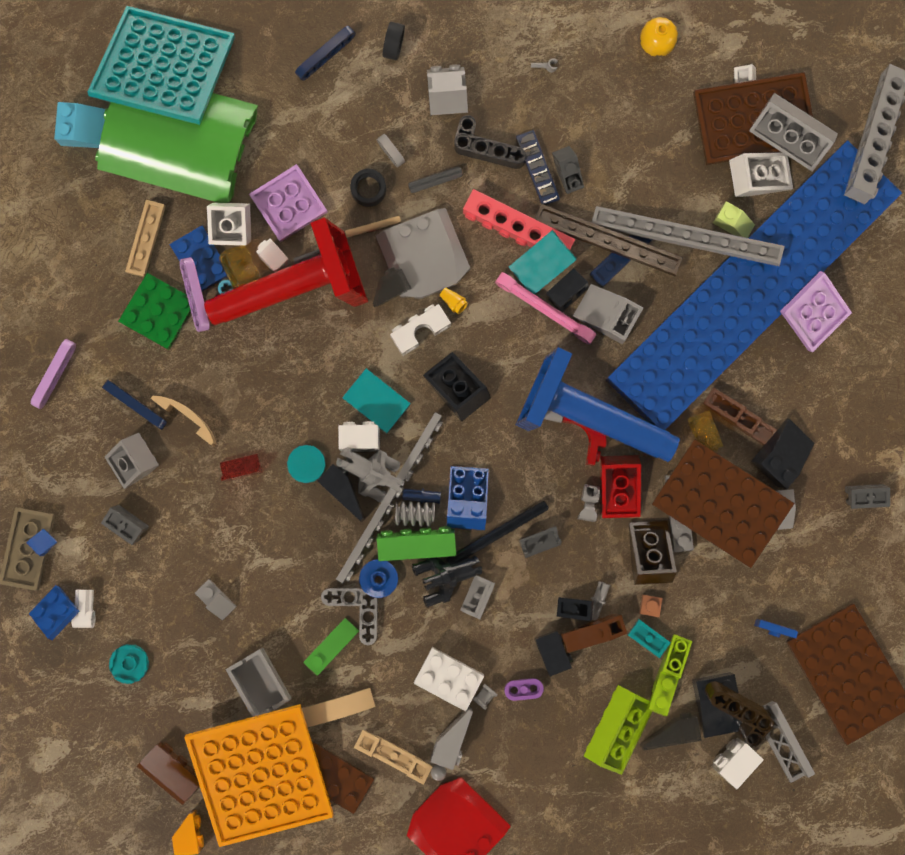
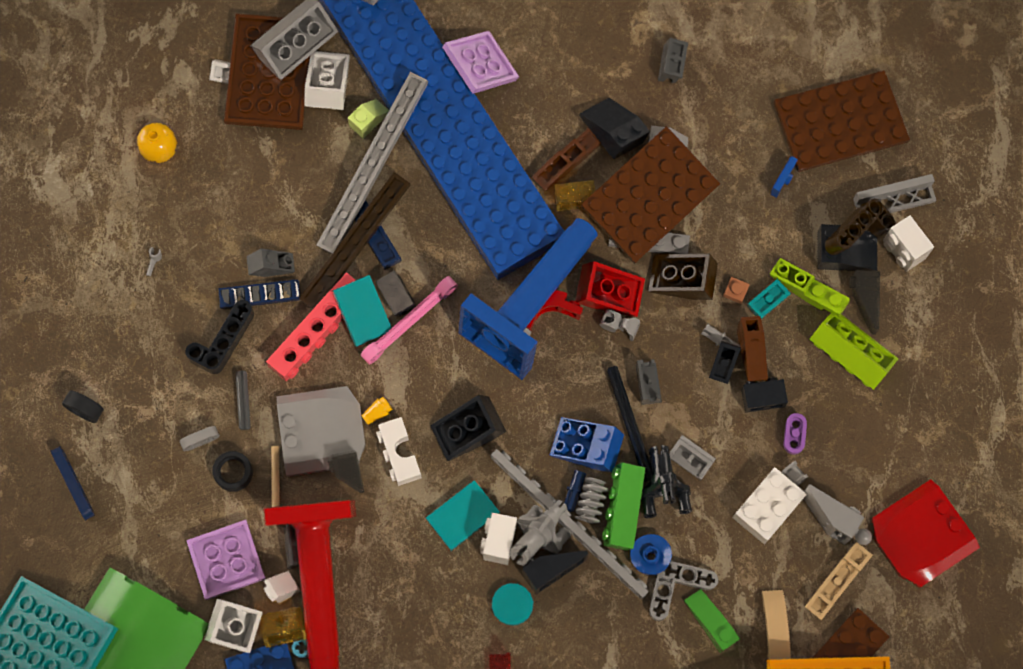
camera: 75 degrees left, 10 degrees down
(447, 90) = (151, 364): light grey piece -> none
(608, 313) = (430, 259): light grey slope -> none

